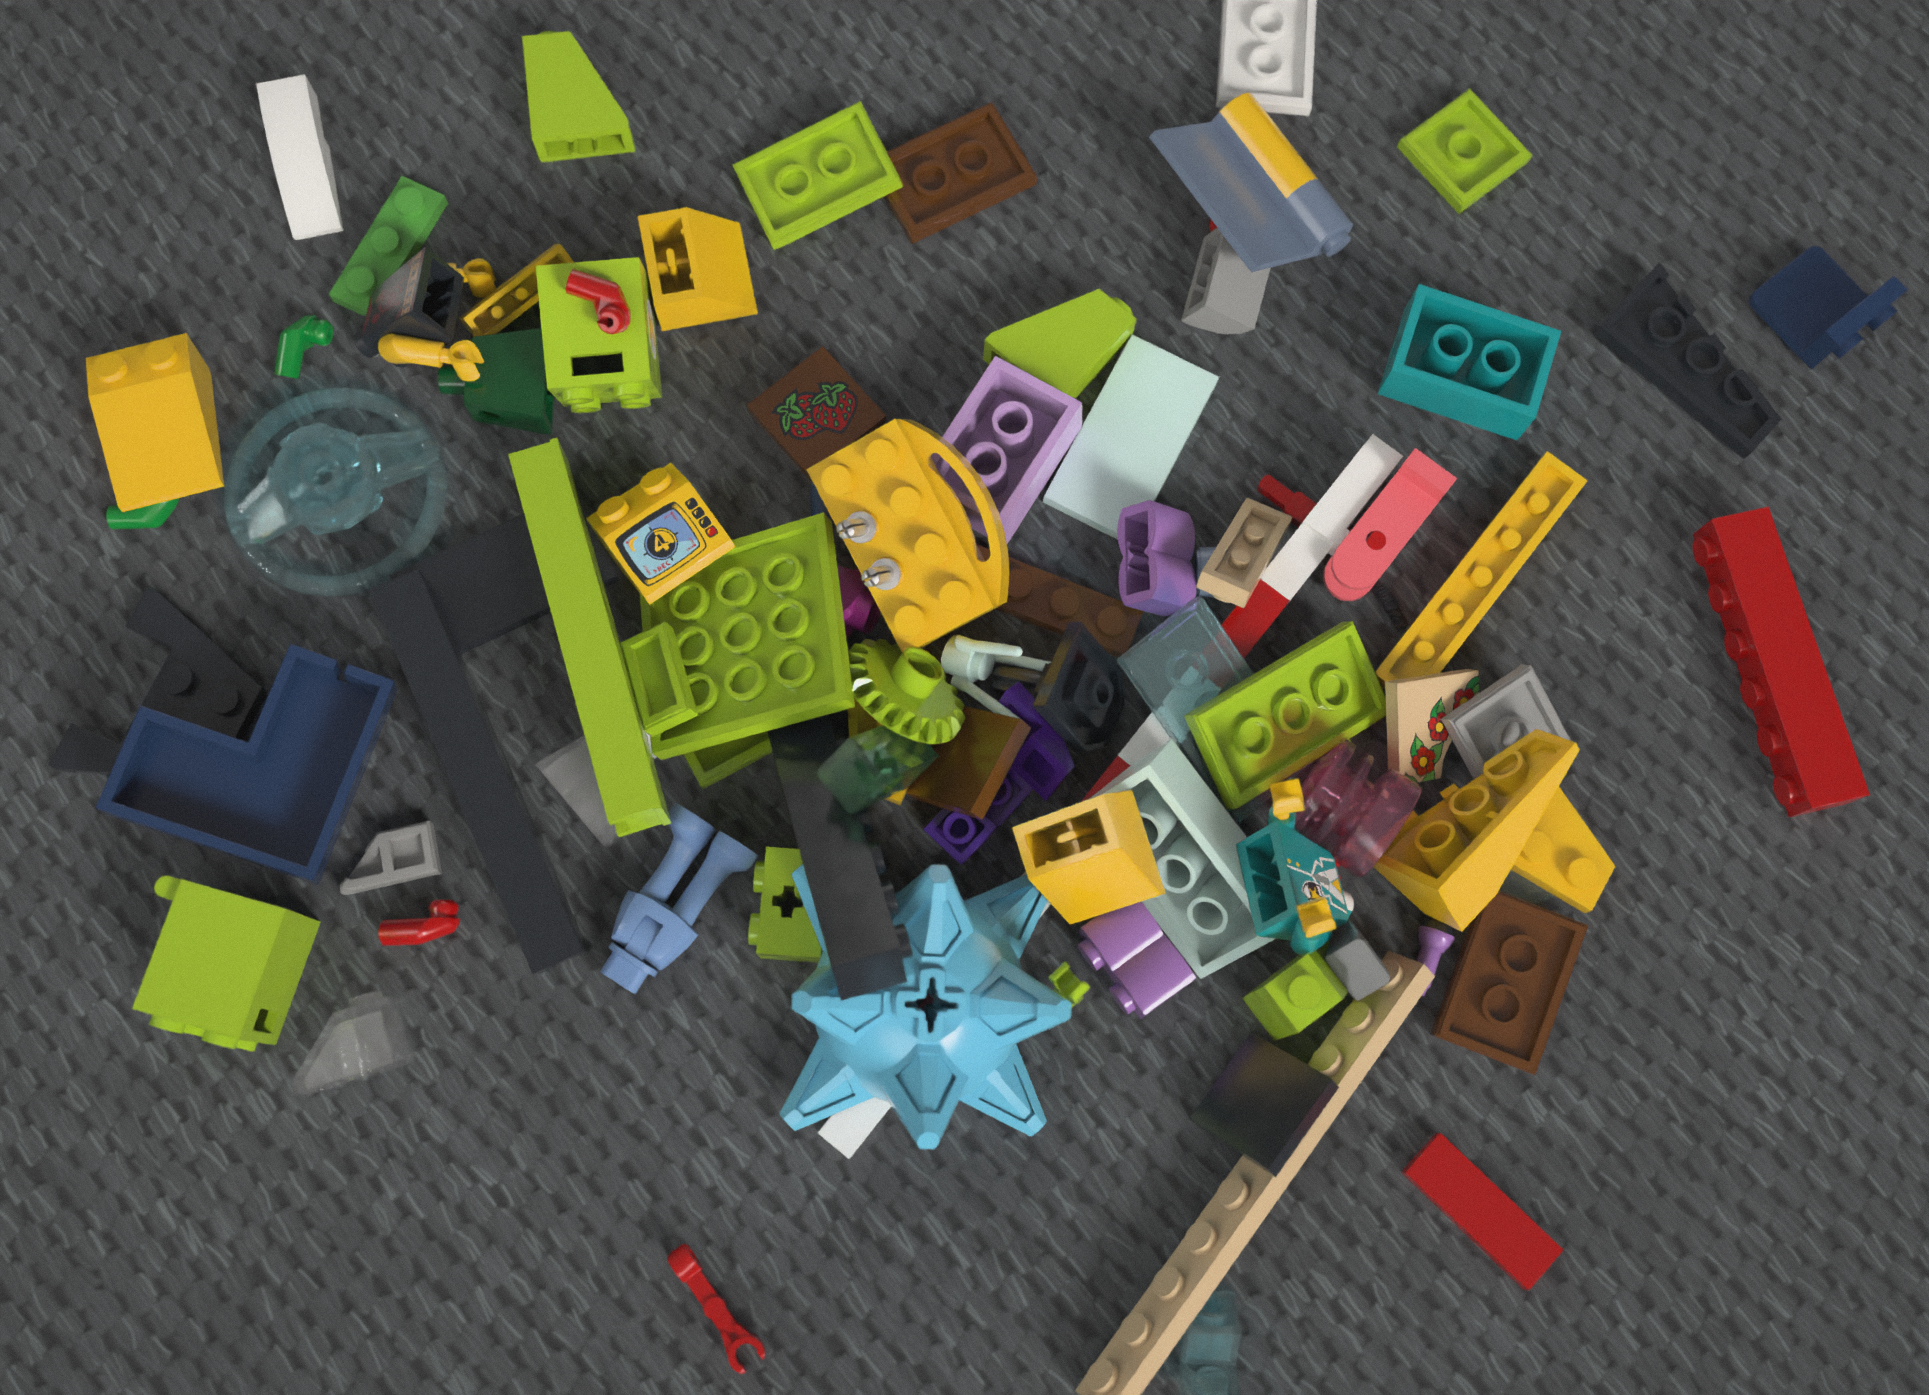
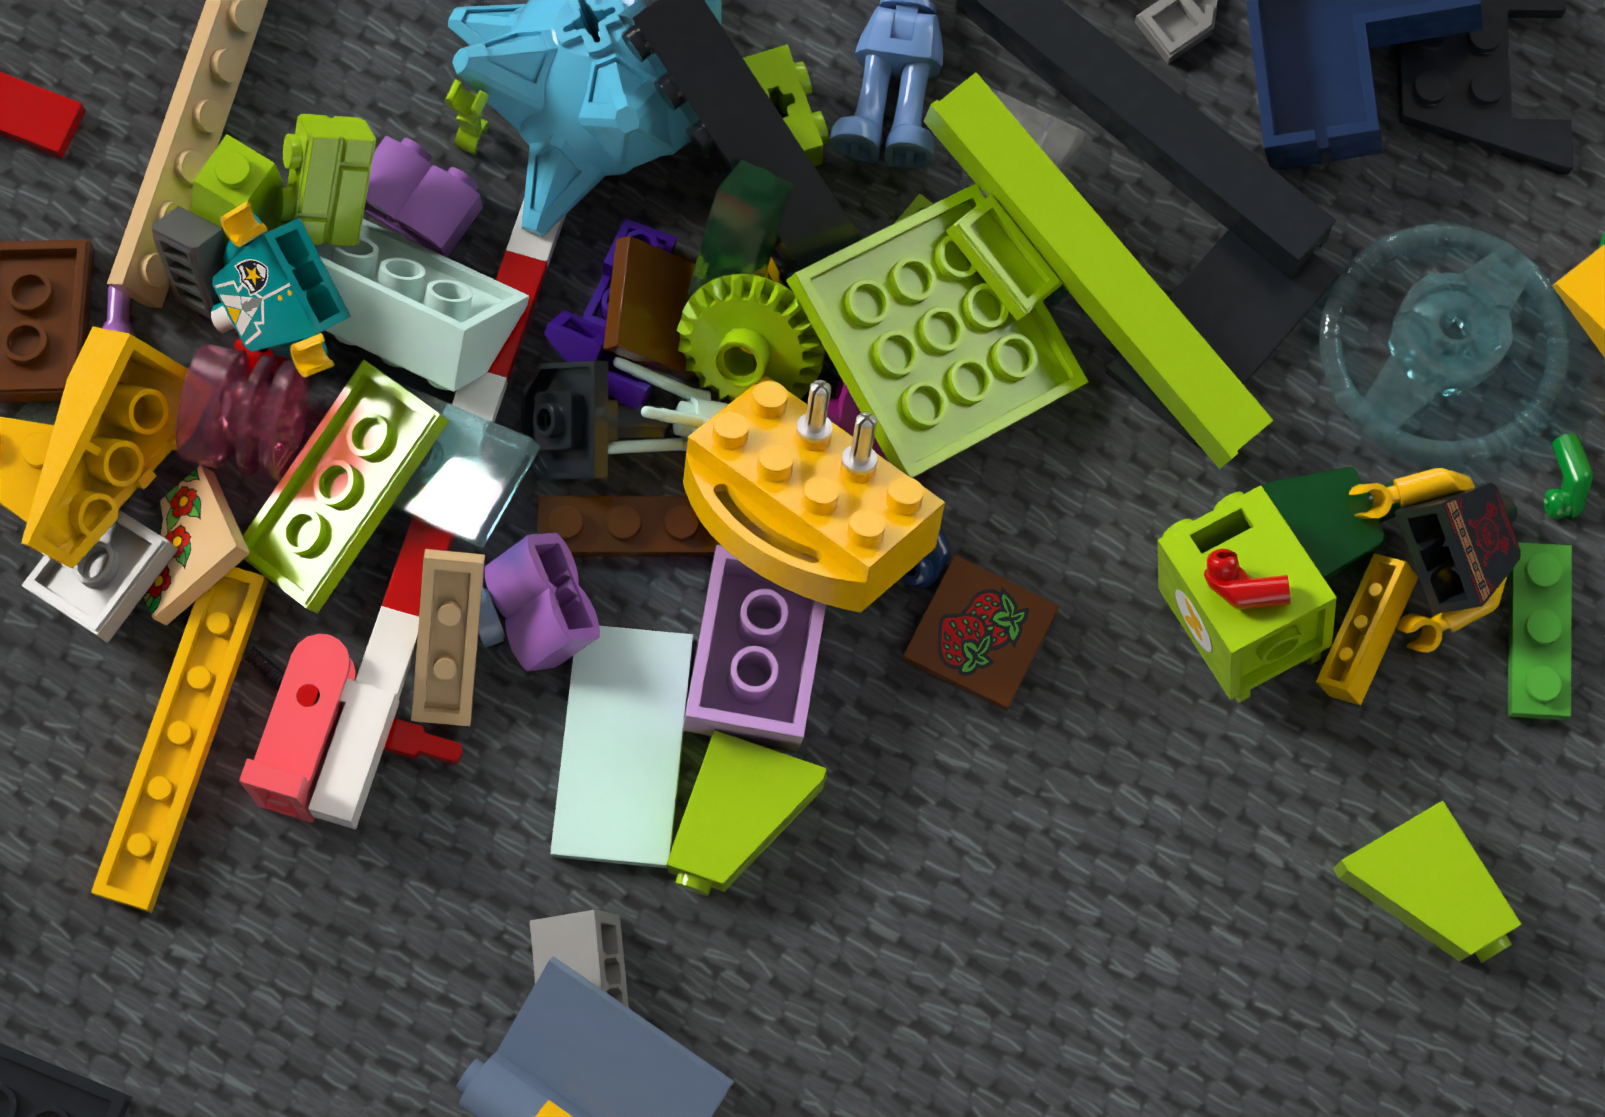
camera: 165 degrees right, 0 degrees up
(660, 532) = (1076, 409): yellow slope -> none
(696, 268) = (1185, 731): yellow slope -> none
(817, 175) = (1107, 913): lime tile -> none
(956, 172) = (956, 991): reddish brown tile -> none
(1090, 857) = (497, 246): yellow slope -> none
(1216, 972) = (327, 177): none -> lime brick
(1264, 1103) = (239, 94): black tile -> none
(1469, 362) = (267, 974): teal brick -> none

